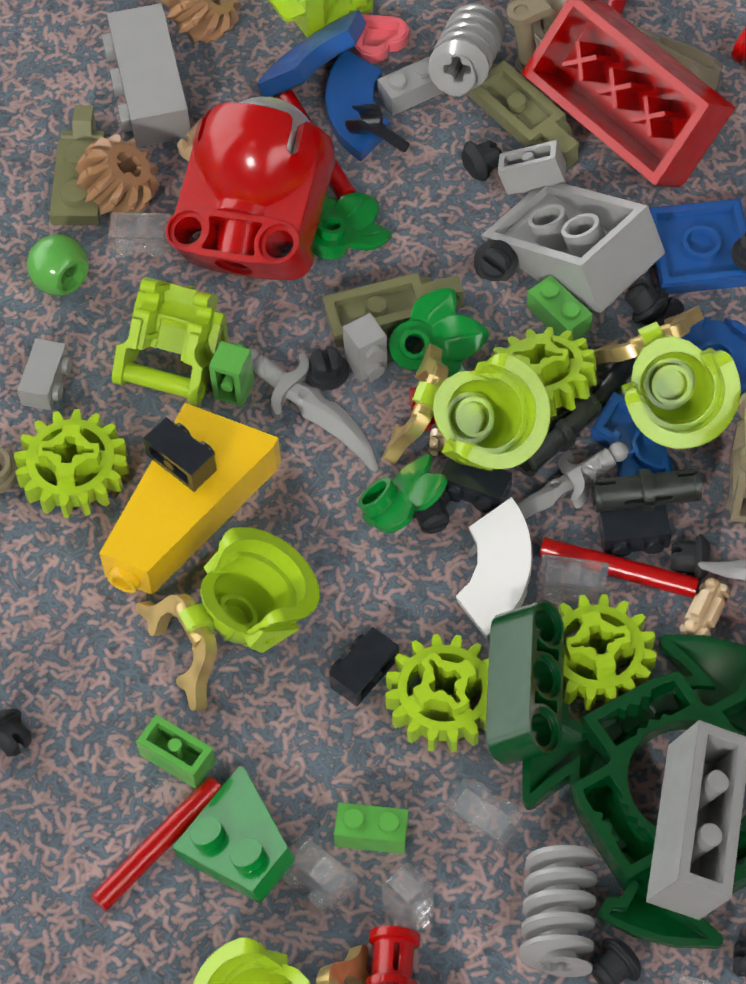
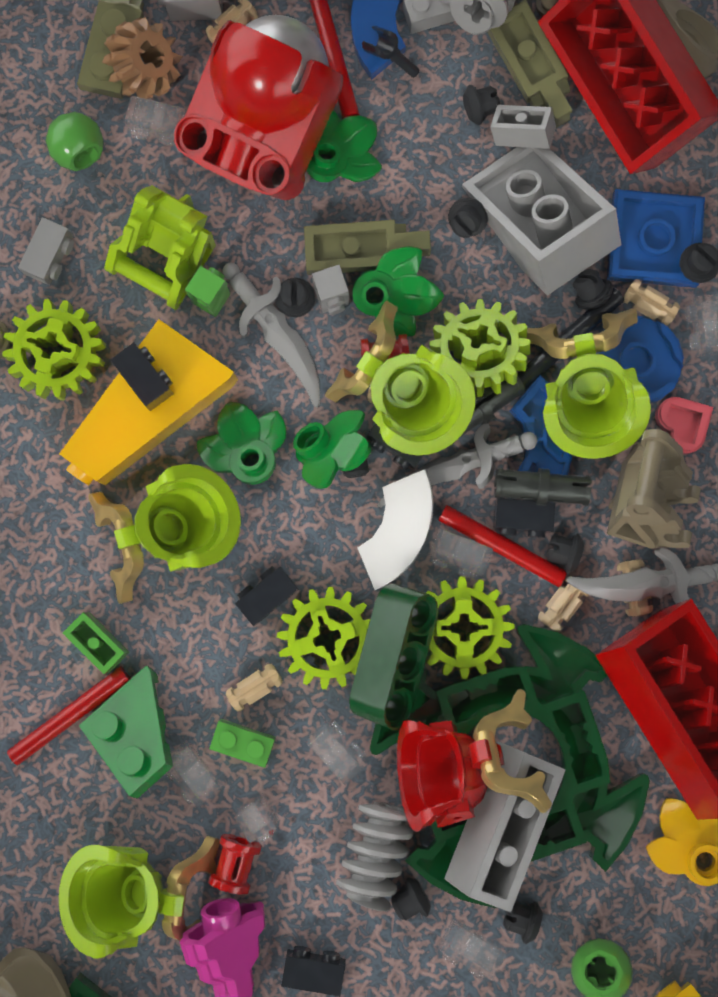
camera: 10 degrees right, 25 degrees up
(307, 518) = (240, 437): none -> green plate
(371, 767) = (254, 687): none -> tan piece
(558, 308) = (512, 281): bright green piece -> none
(620, 774) = (449, 772): none -> red helmet
(713, 303) = (651, 302): none -> tan piece

